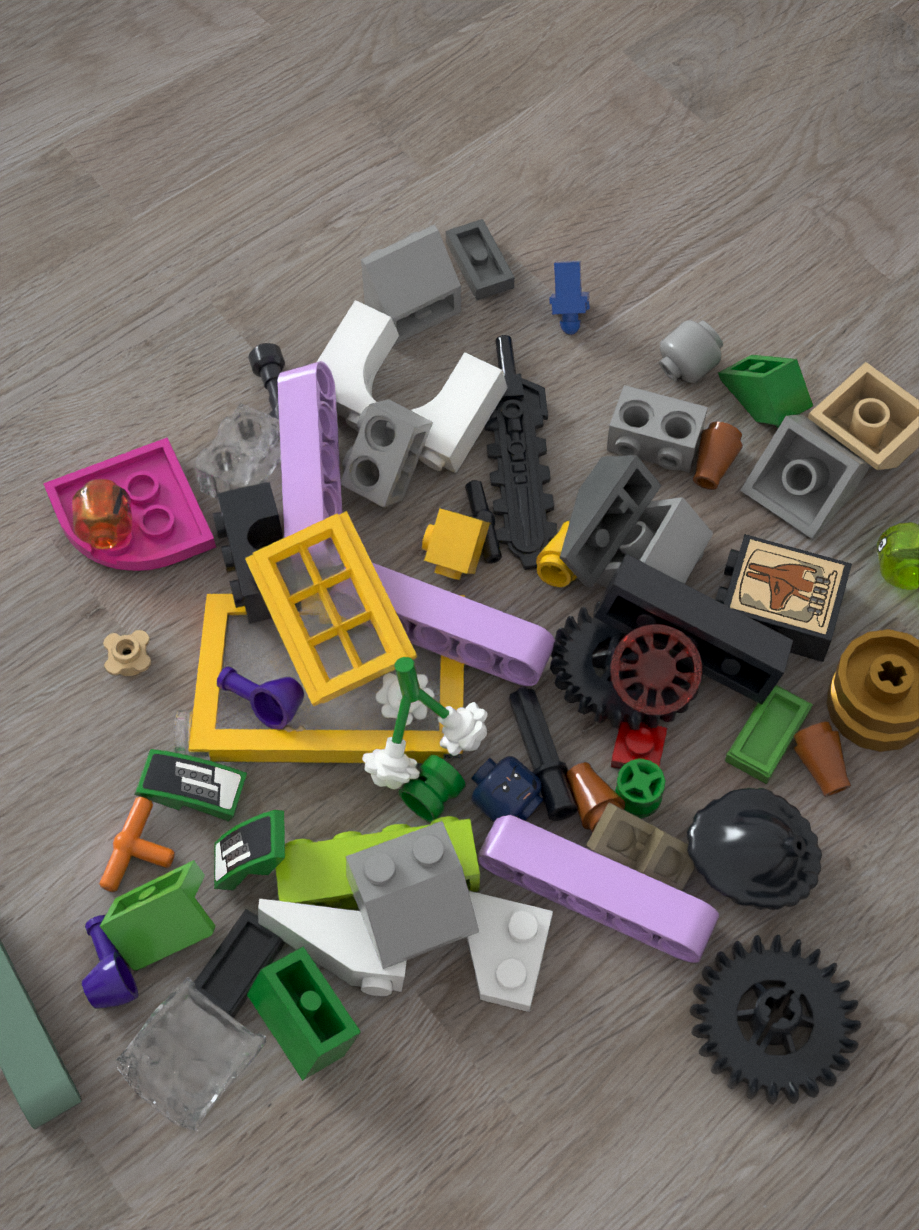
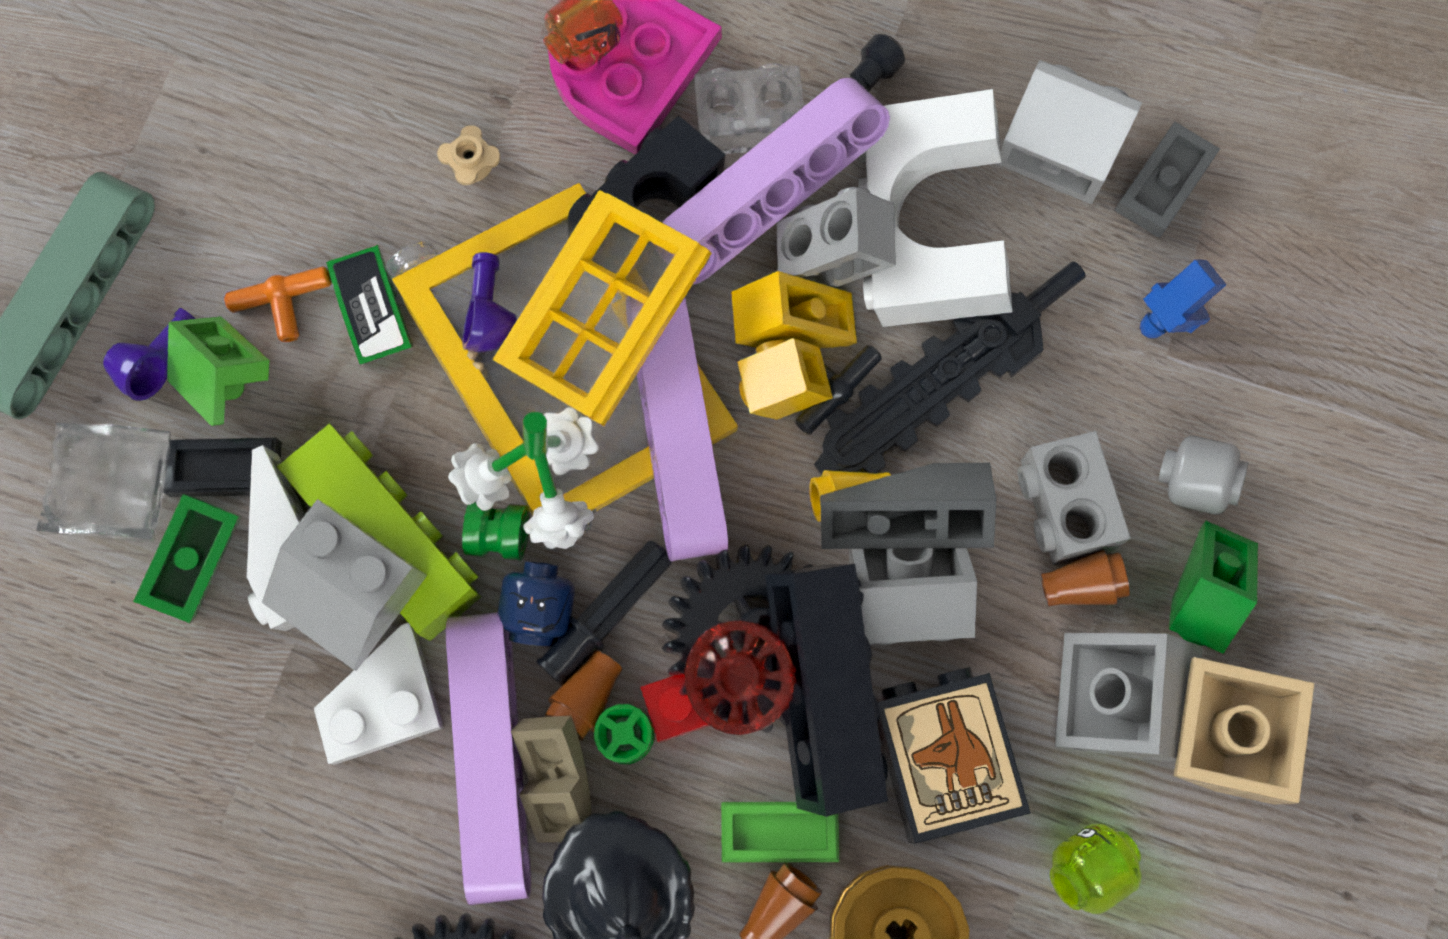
camera: 60 degrees right, 15 degrees up
(249, 848) = (317, 403): slope -> none
(406, 515) = (790, 308): none -> yellow slope

